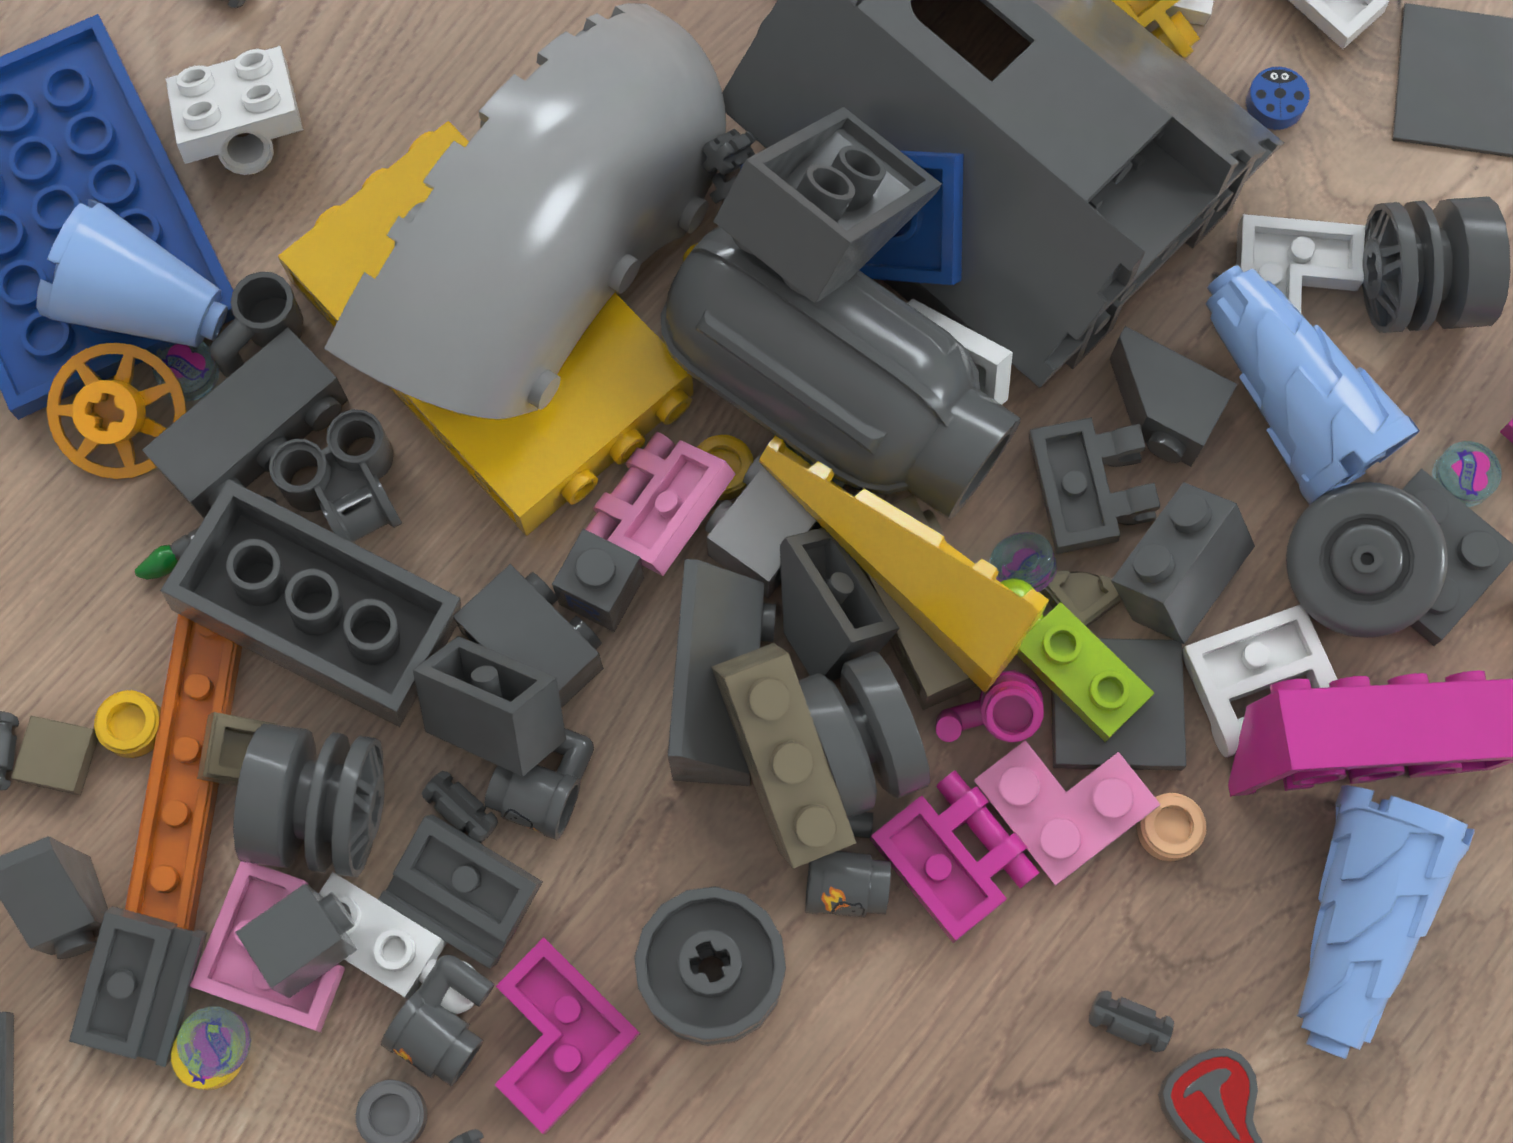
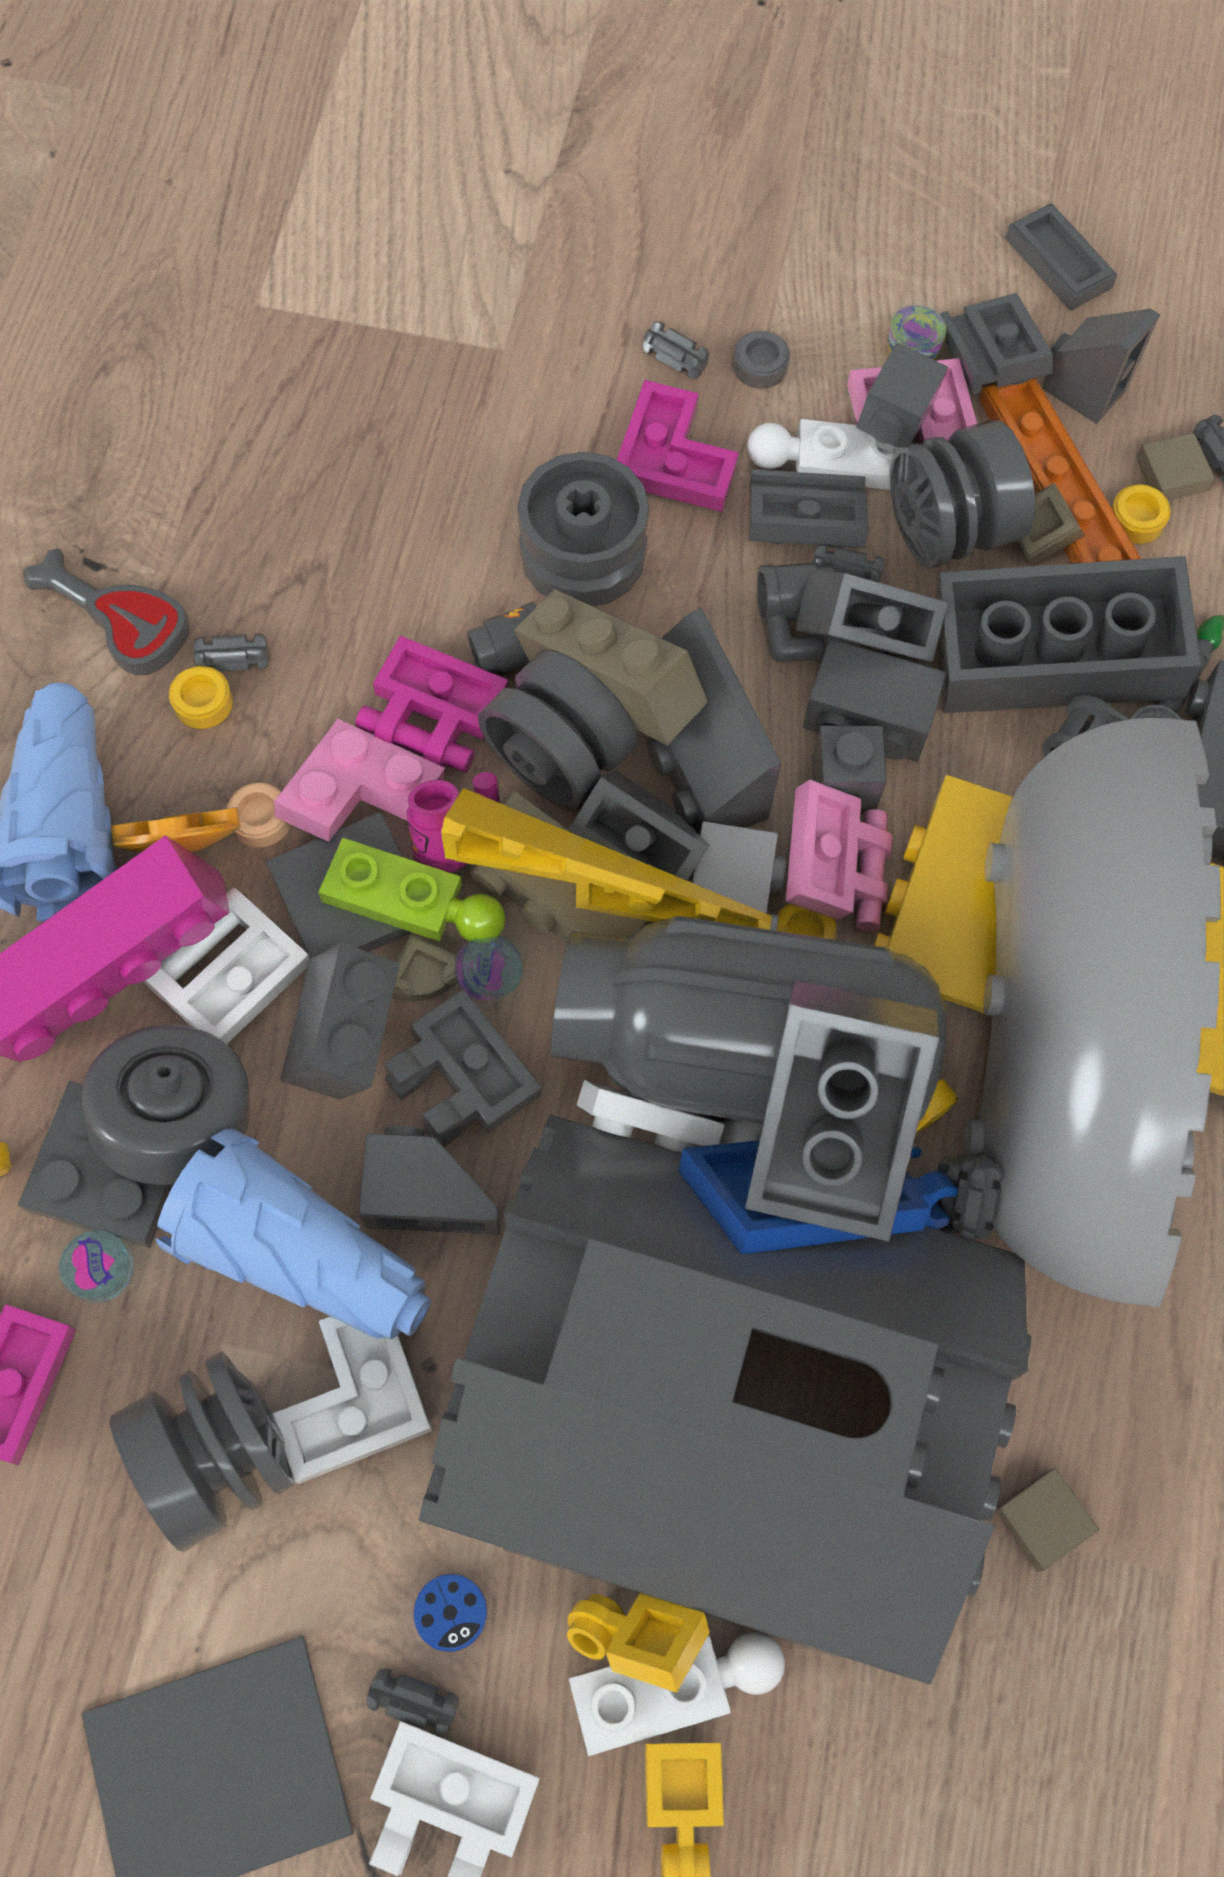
camera: 150 degrees right, 5 degrees down
(431, 1035) = (762, 402): dark grey piece -> none
(1180, 987) = (201, 697): none -> yellow tile
(1267, 818) = (182, 828): none -> light orange dish
(1330, 55) = (412, 1701): none -> dark grey piece

